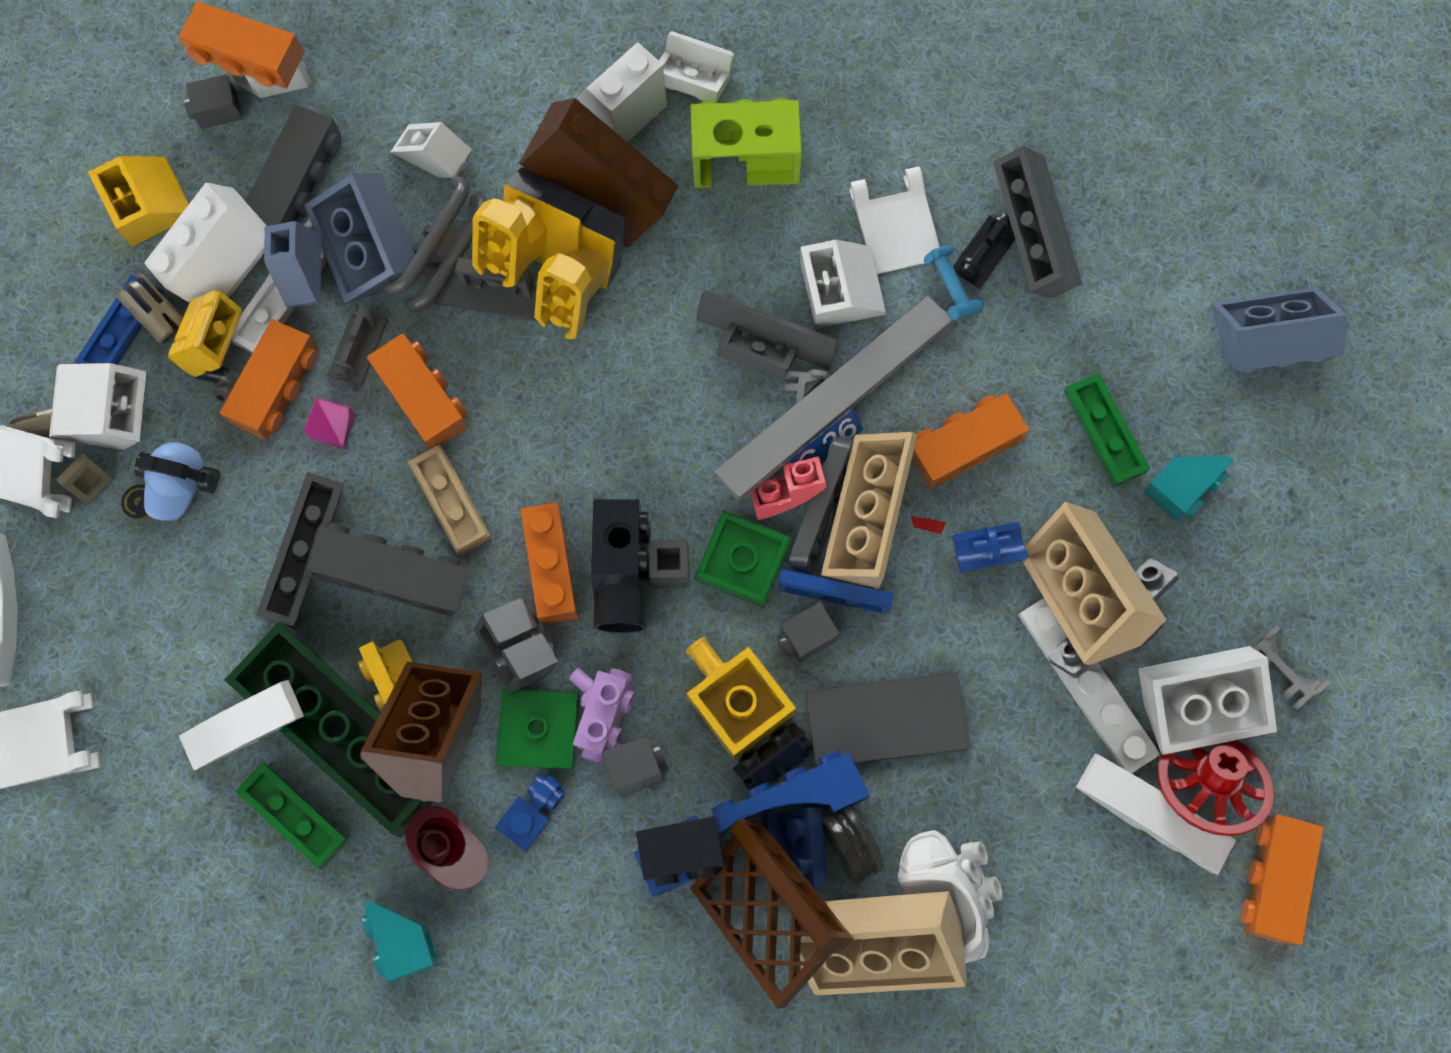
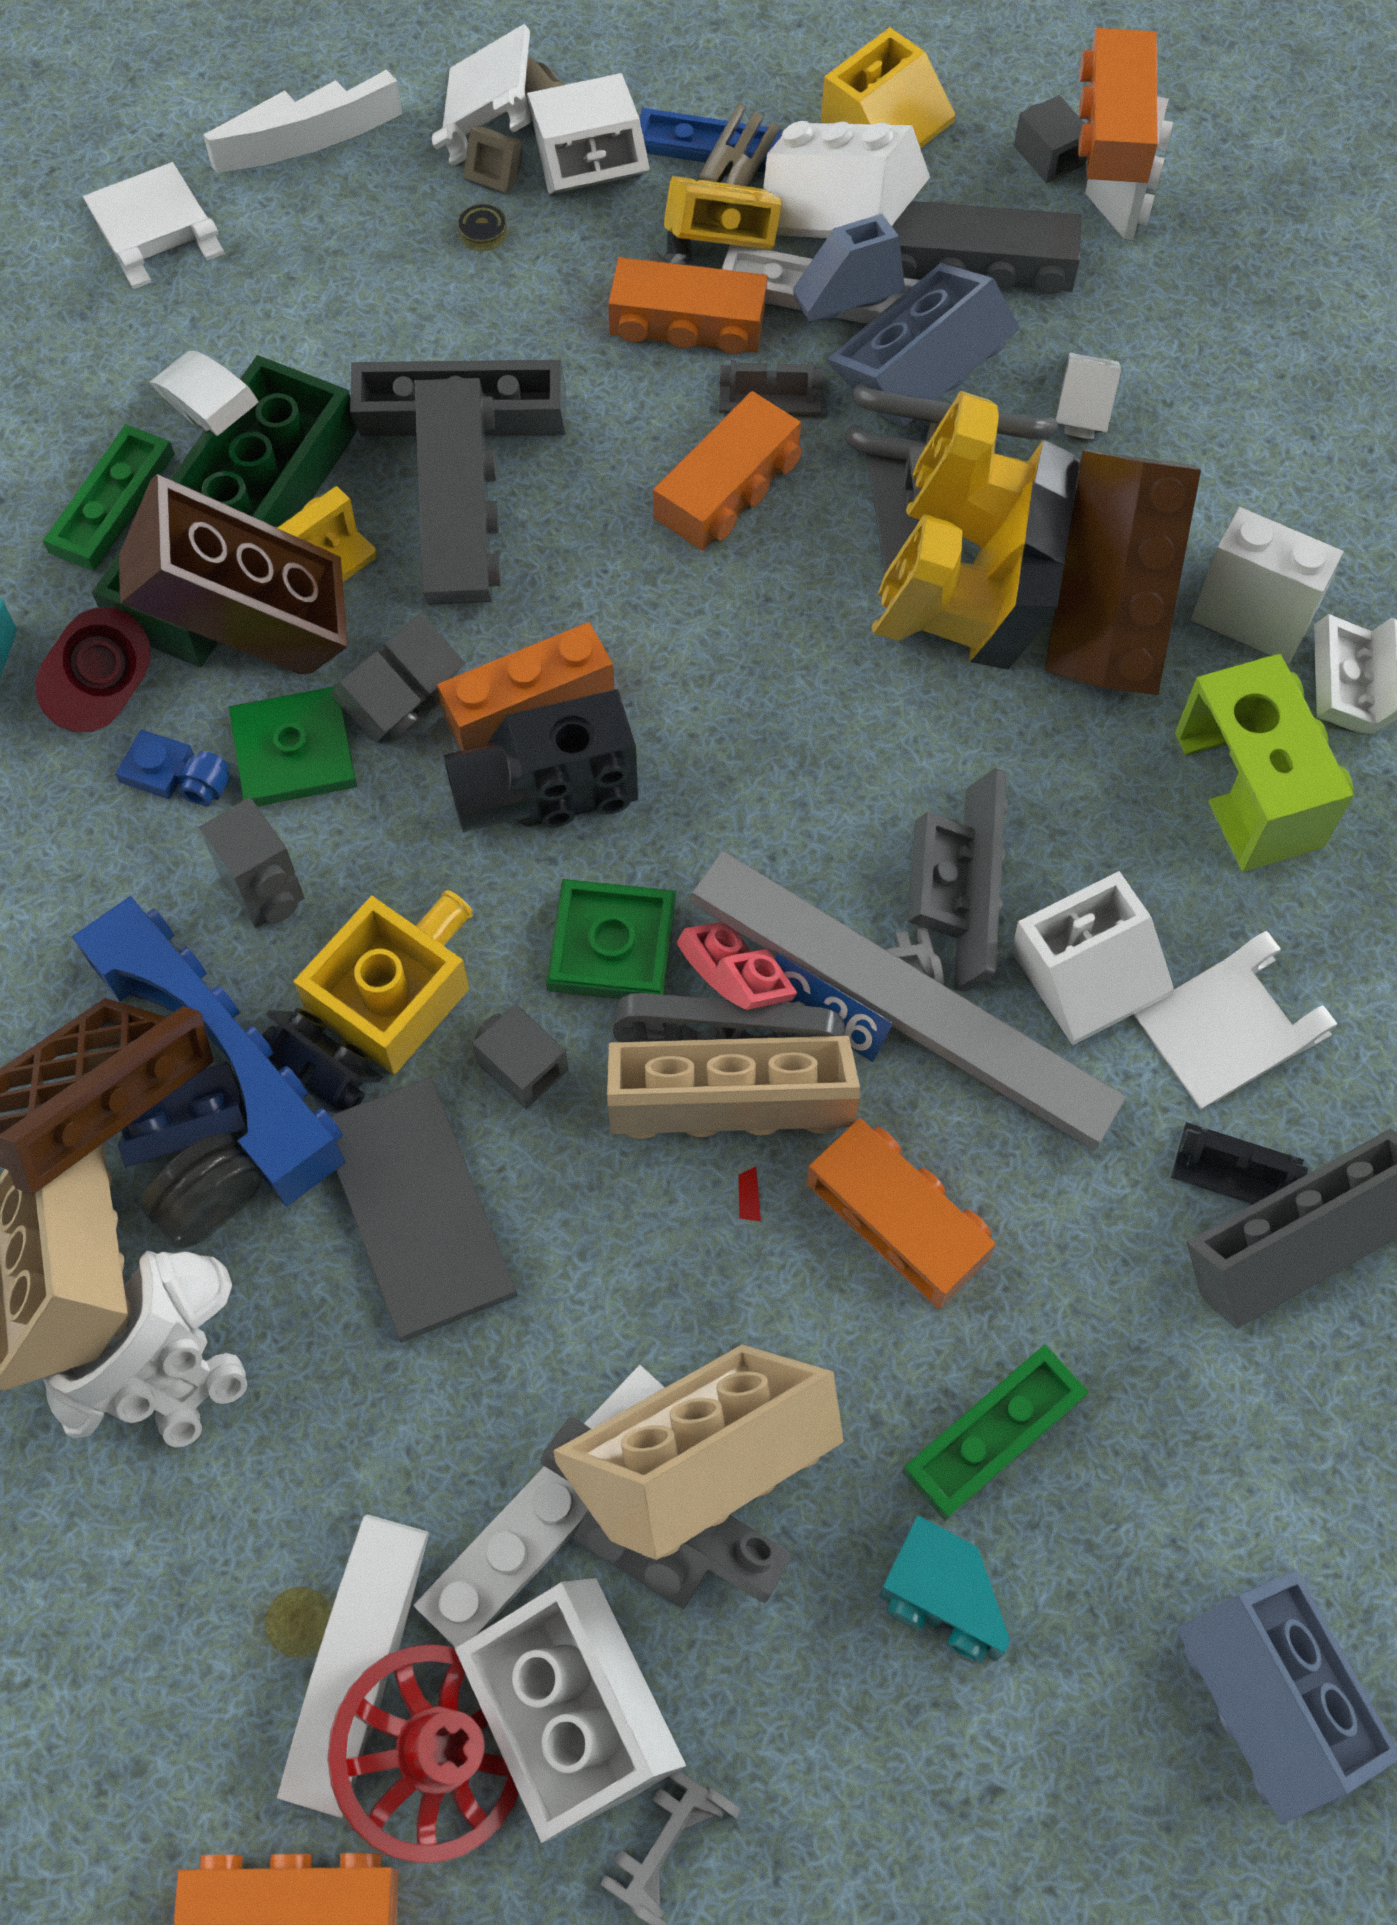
camera: 70 degrees right, 10 degrees down
(172, 479) = (521, 240): light blue cap -> none
(330, 423) = (651, 388): dark pink slope -> none
(449, 500) = (589, 555): tan tile -> none
(604, 706) = (330, 810): lavender brick -> none
(669, 563) = (568, 835): dark grey brick -> none
(681, 850) = (135, 944): black brick -> none
(835, 591) = (594, 1077): blue tile -> none
(963, 306) = (1128, 1154): dark azure piece -> none
(989, 547) = (730, 1286): blue hips -> none
(1121, 843) = (297, 1621): none -> clear yellow tile

